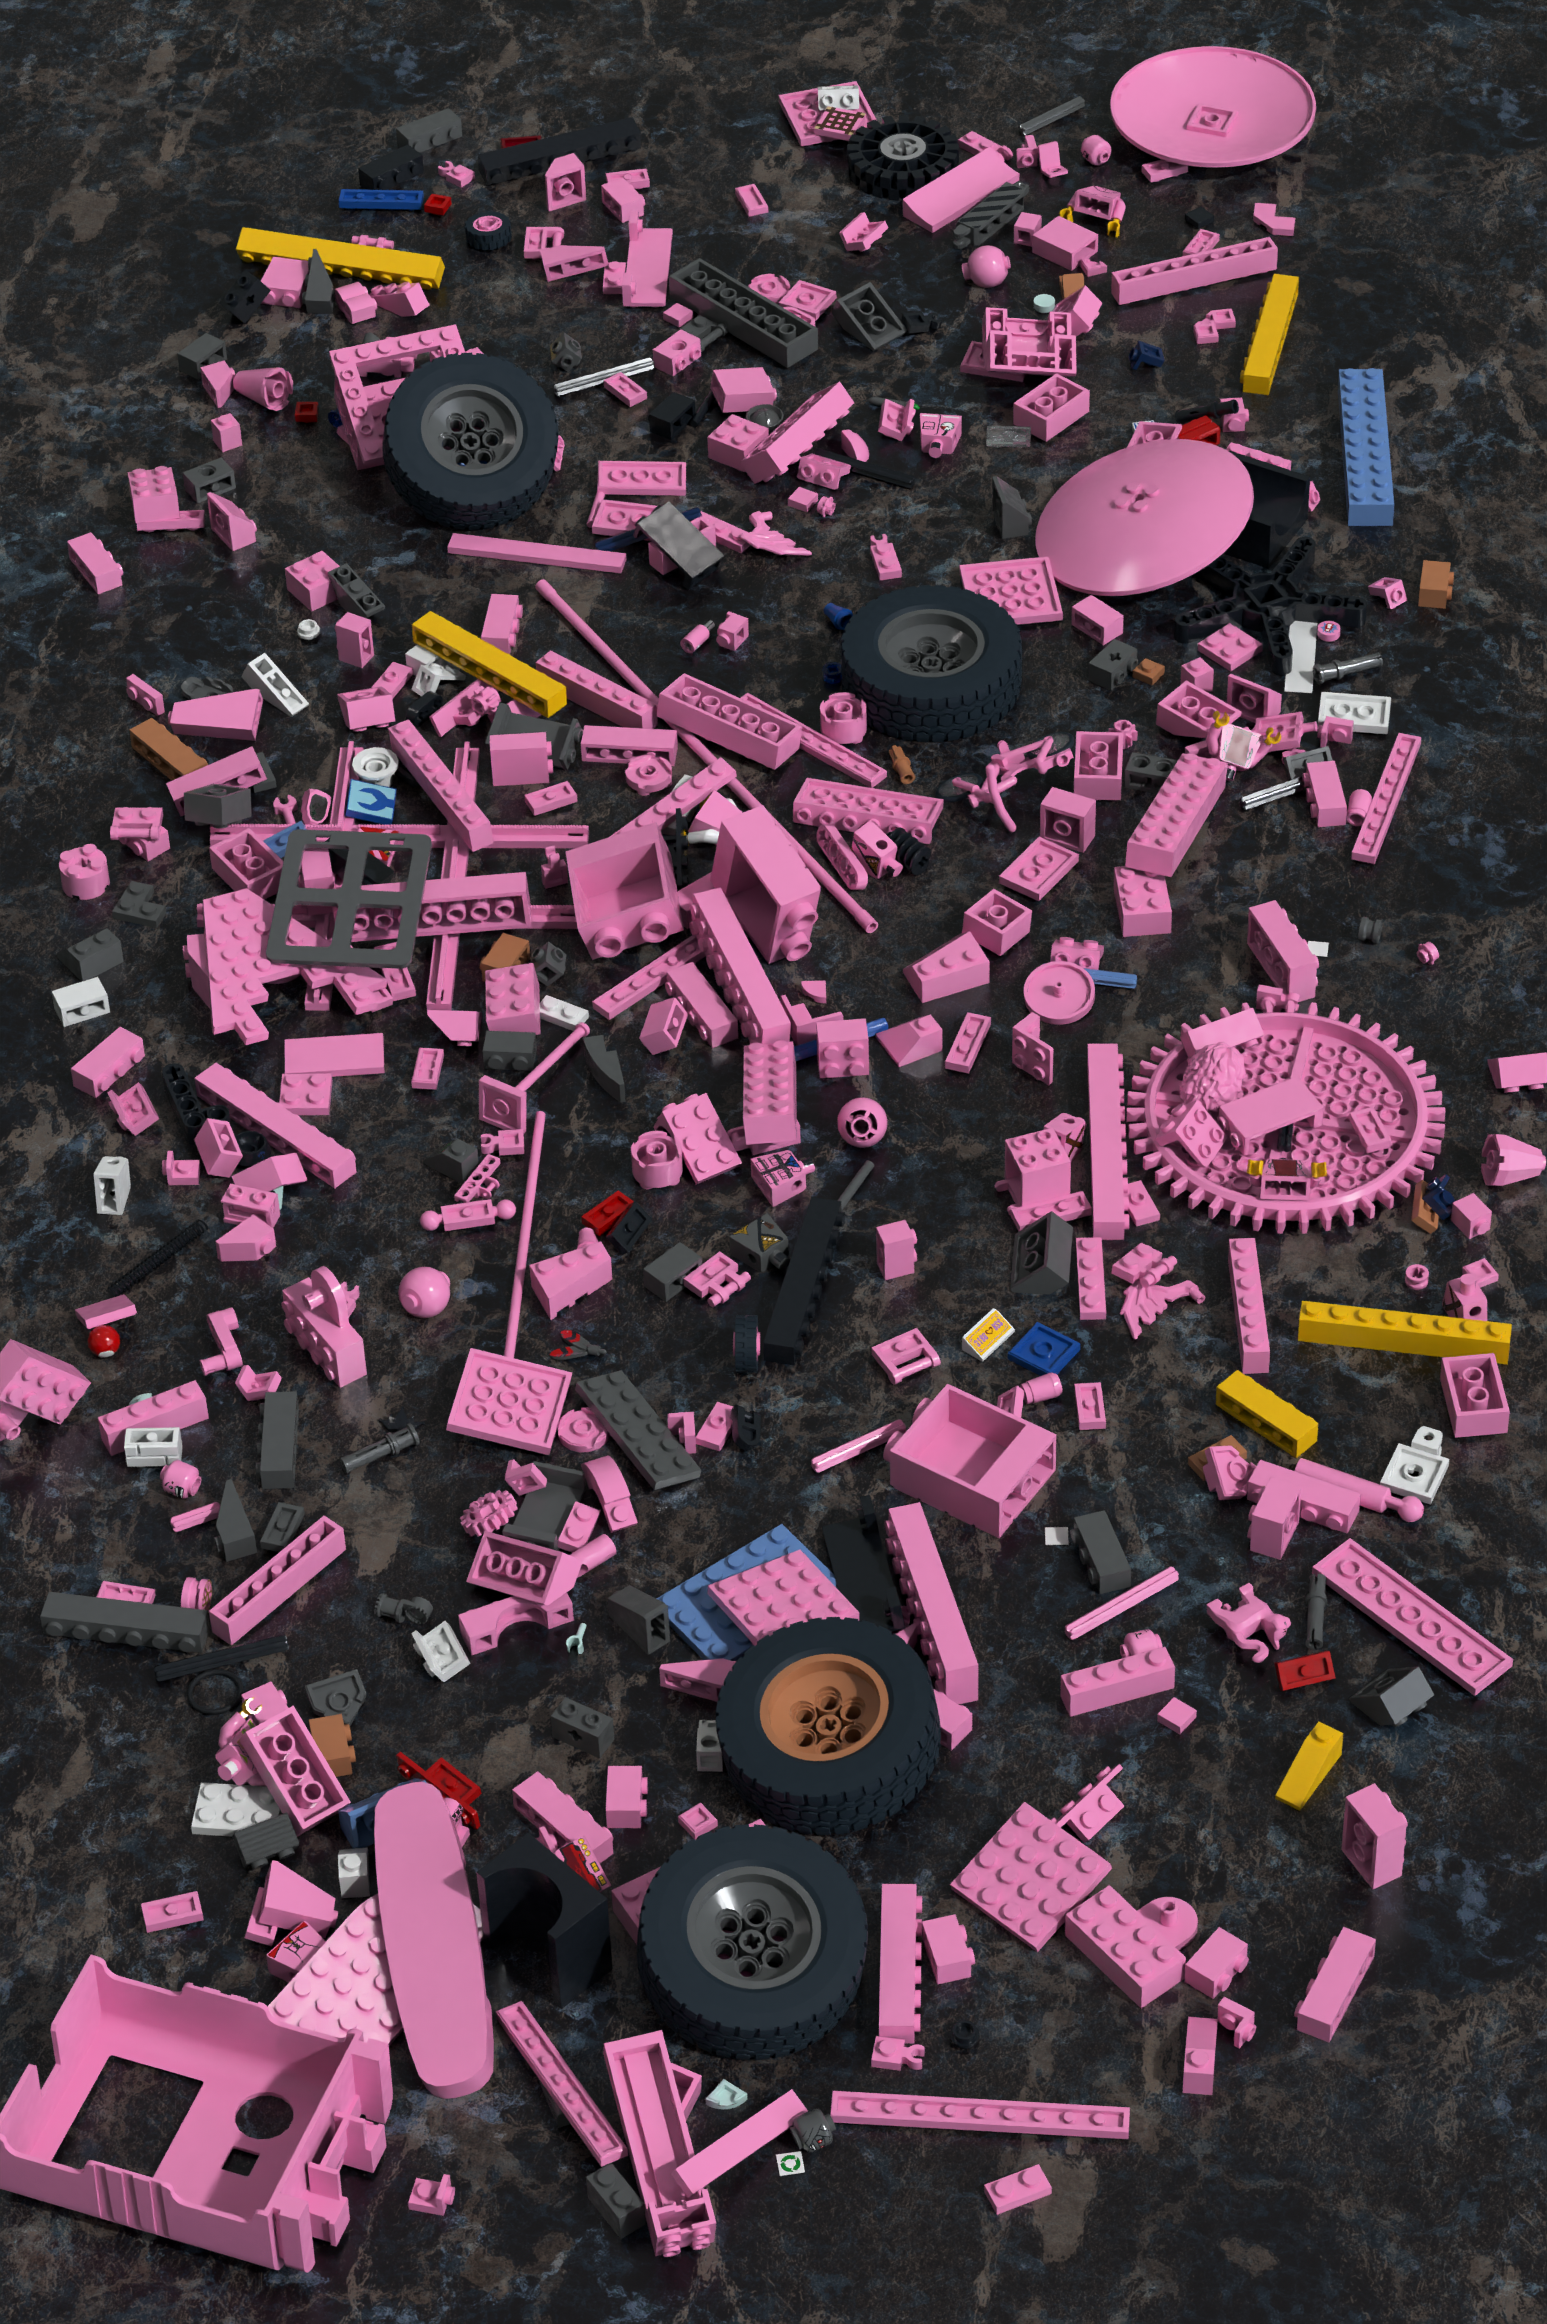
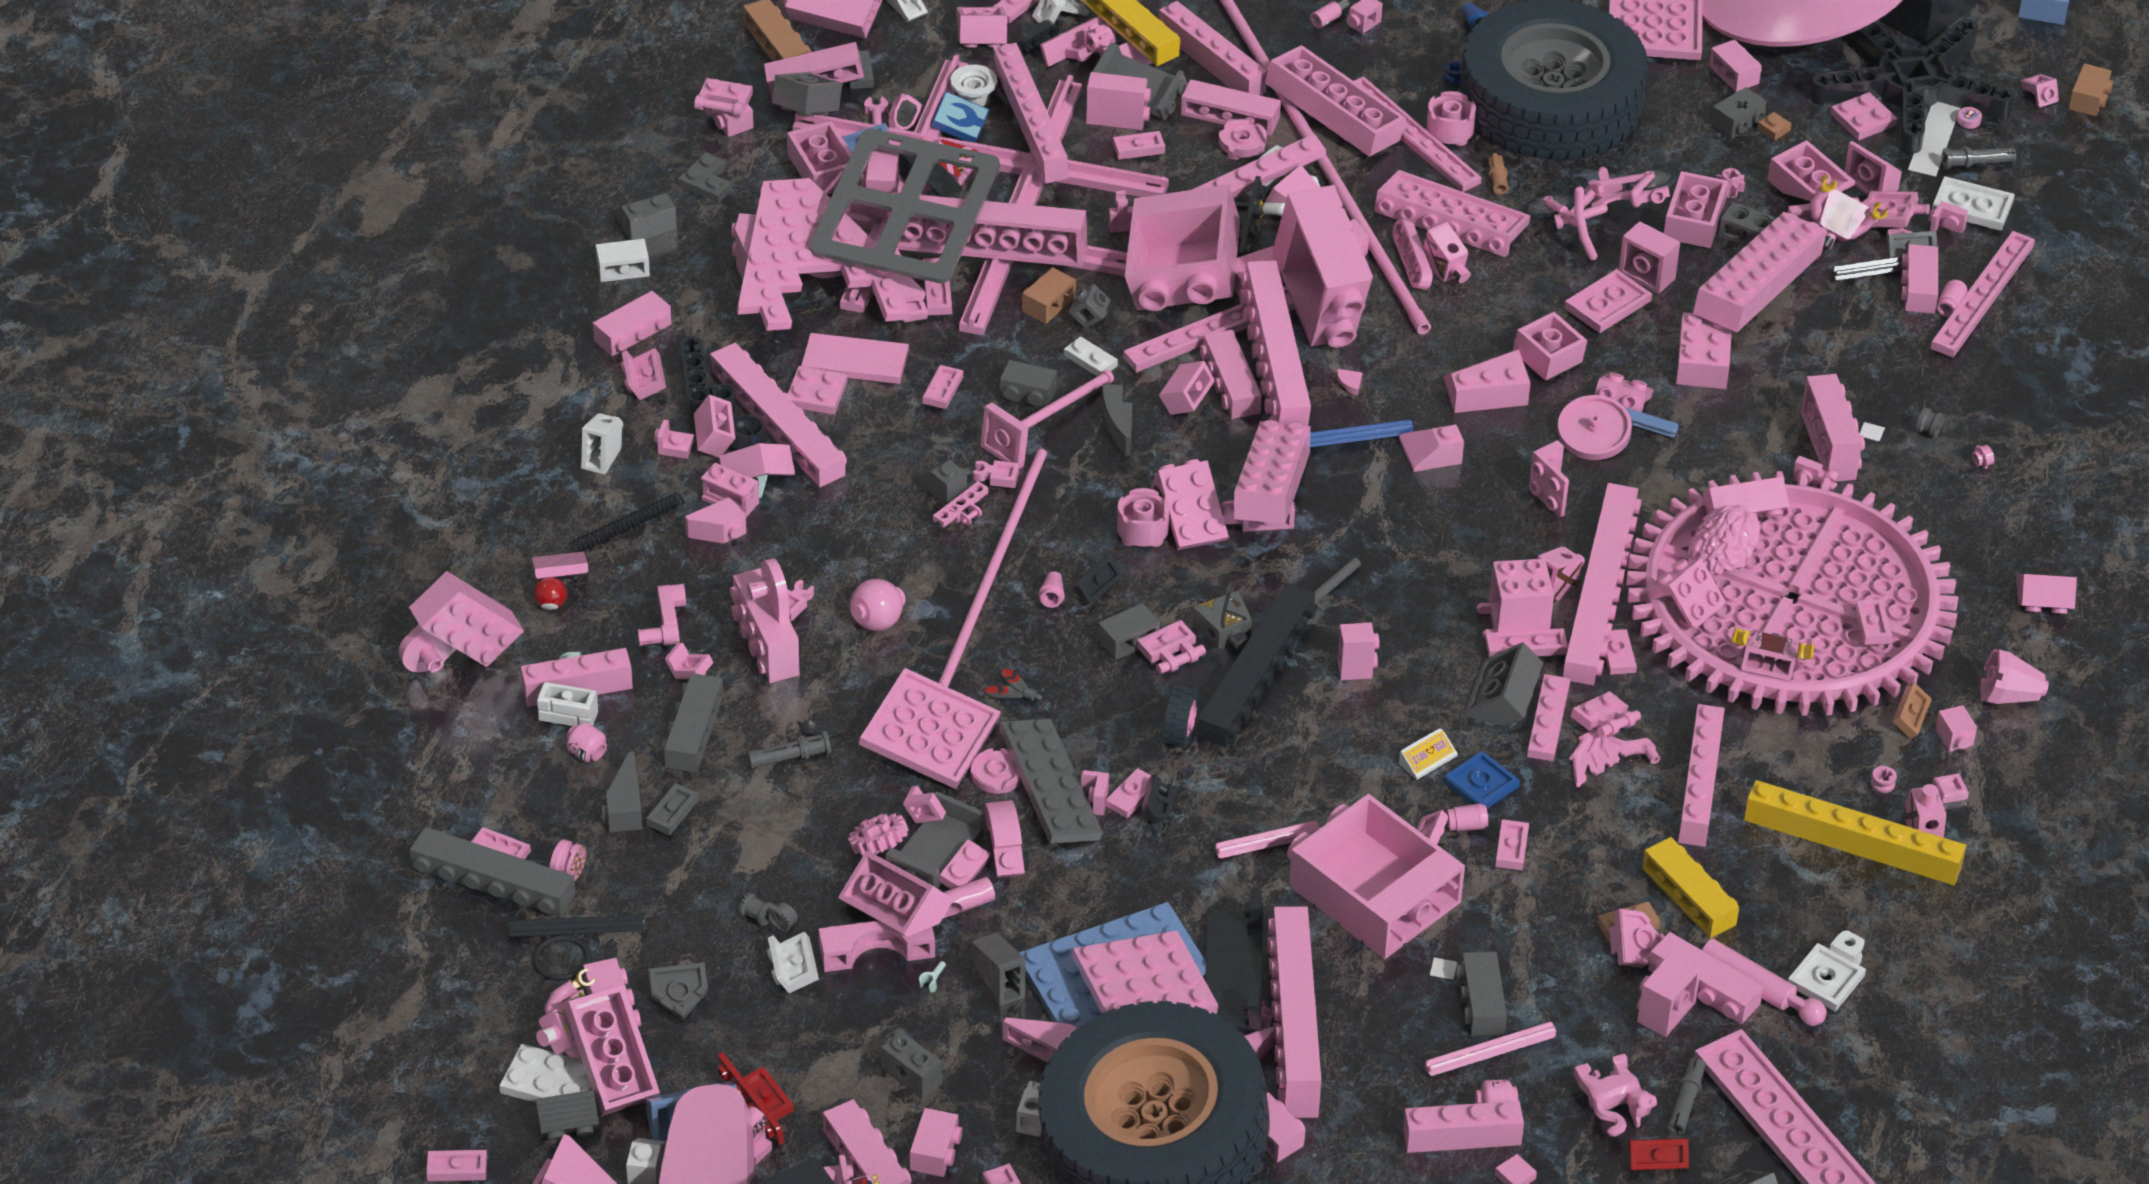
camera: 10 degrees right, 0 degrees up
(84, 872) = (661, 135): bright pink brick -> none
(195, 1517) = (589, 782): bright pink axle -> none
(277, 1580) = (651, 859): bright pink brick -> none
(332, 1738) = (658, 1032): nougat brick -> none
(458, 1025) = (984, 350): bright pink slope -> none
(467, 1215) = (941, 537): bright pink plate -> none
(513, 999) = (1044, 334): bright pink brick -> none
(570, 1276) = (1025, 616): bright pink wedge -> none
(606, 1213) = (1079, 561): red plate -> none
(780, 1175) = (1263, 556): bright pink torso -> none
(802, 1025) = (1330, 416): bright pink panel -> none
(842, 1048) = (1359, 442): bright pink brick -> none
(862, 1122) = (1358, 519): bright pink brick -> none
(902, 1349) = (1339, 752): bright pink plate -> none
(910, 851) = (1482, 260): black piece -> none
(968, 1042) = (1488, 460): bright pink plate -> none
(1198, 673) = (1822, 137): bright pink brick -> none
(1268, 1111) = (1772, 584): bright pink panel -> none
(1285, 1138) = (1786, 607): black axle -> none
(1438, 1197) = (1926, 703): dark blue bracket -> none
(1474, 1395) = (1909, 909): bright pink brick -> none

